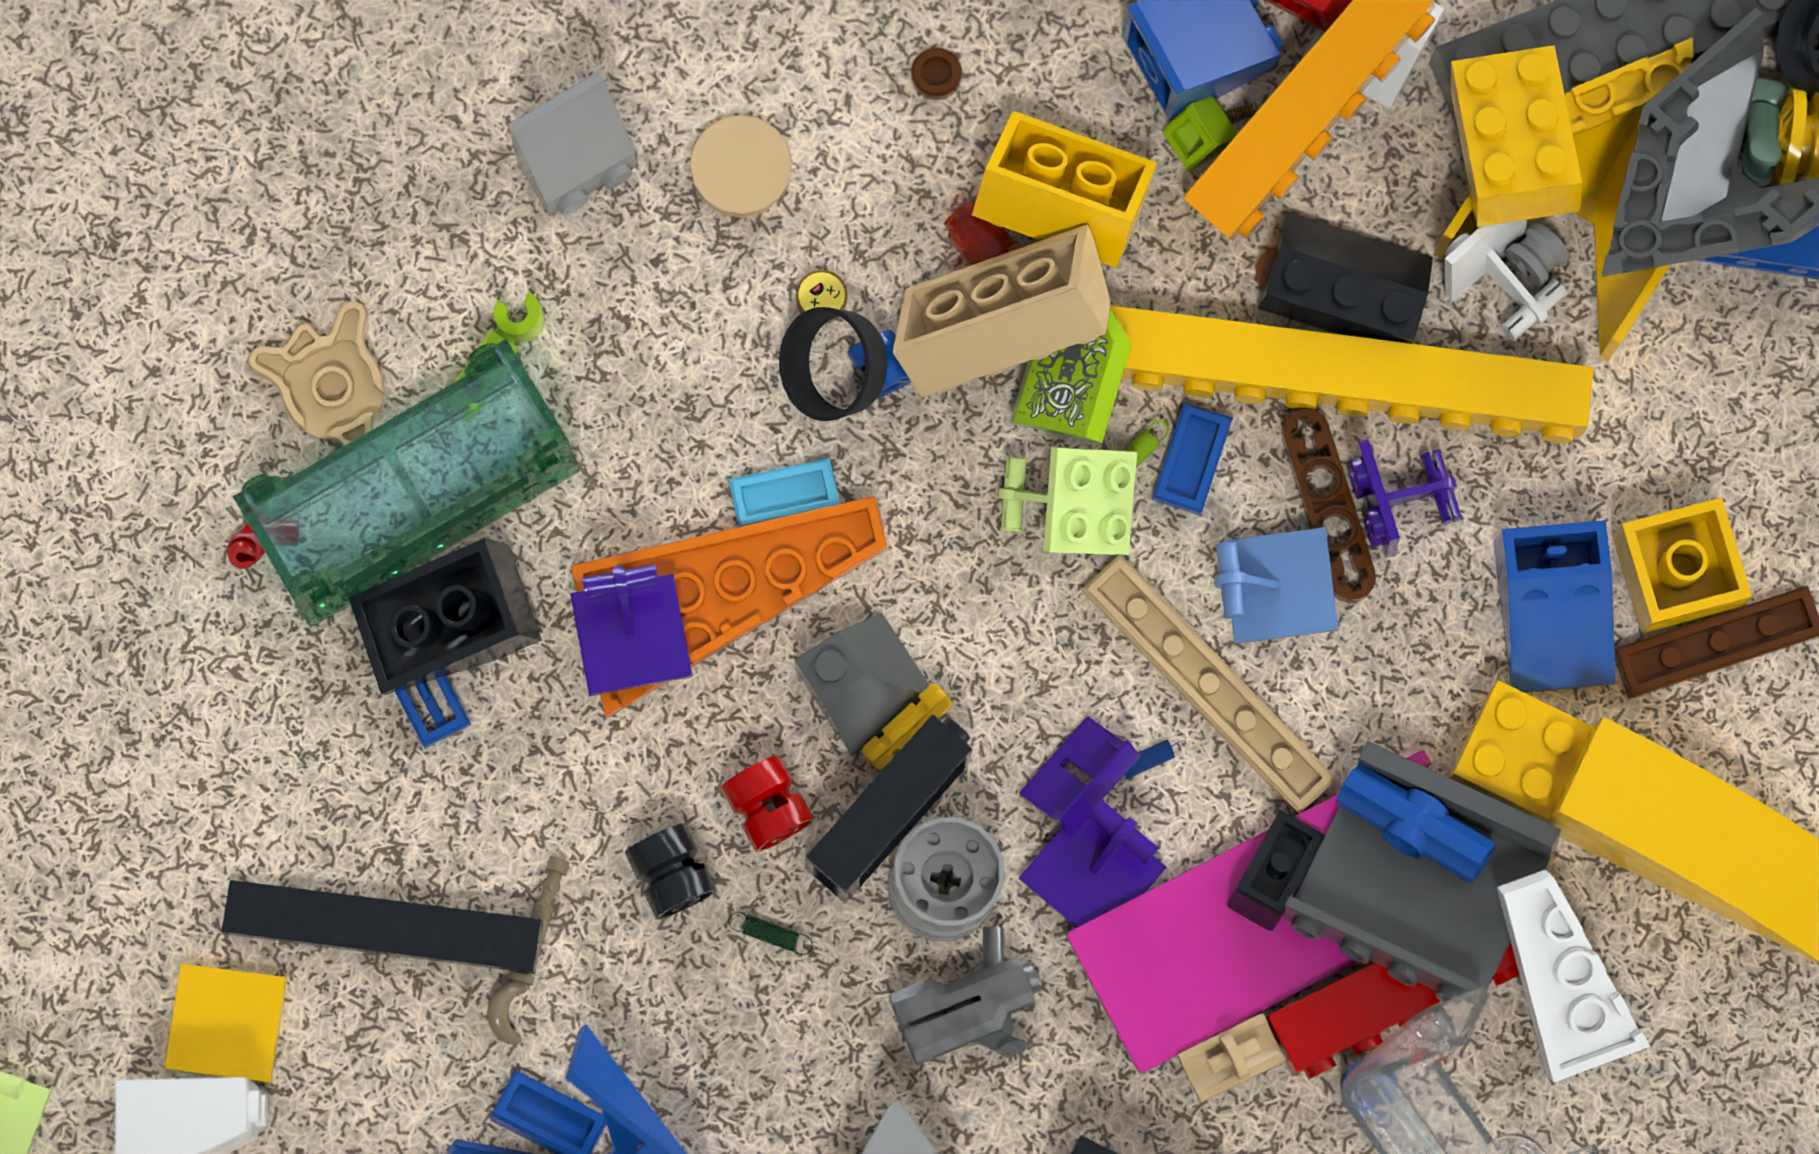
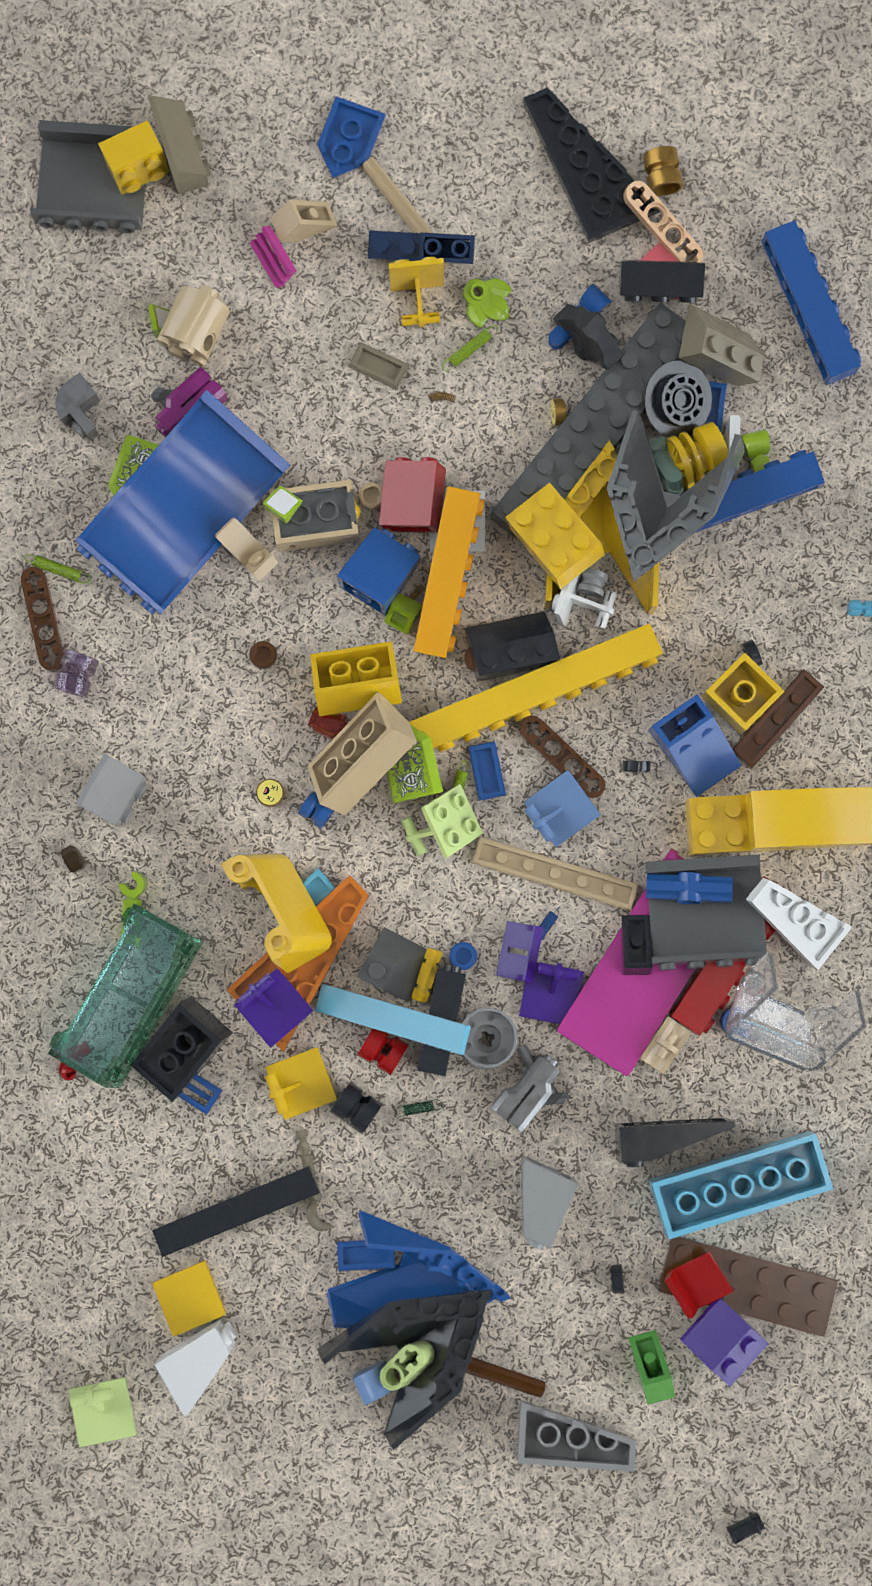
camera: 25 degrees left, 5 degrees up
(326, 381) = (61, 966): tan tile -> none
(447, 222) = (73, 858): none -> dark brown tile
(601, 783) = (299, 1083): none -> yellow plate
(741, 166) = (196, 751): tan tile -> none
(743, 533) = (301, 928): none -> yellow windscreen
(796, 371) = (280, 837): black tyre -> none
(813, 755) = (393, 1019): none -> medium azure tile
(987, 730) = (463, 955): none -> blue tile
(1380, 520) = (591, 753): dark purple plate -> none
(1441, 586) = (636, 766): none -> black tile
(1736, 507) = (751, 650): none -> black tile

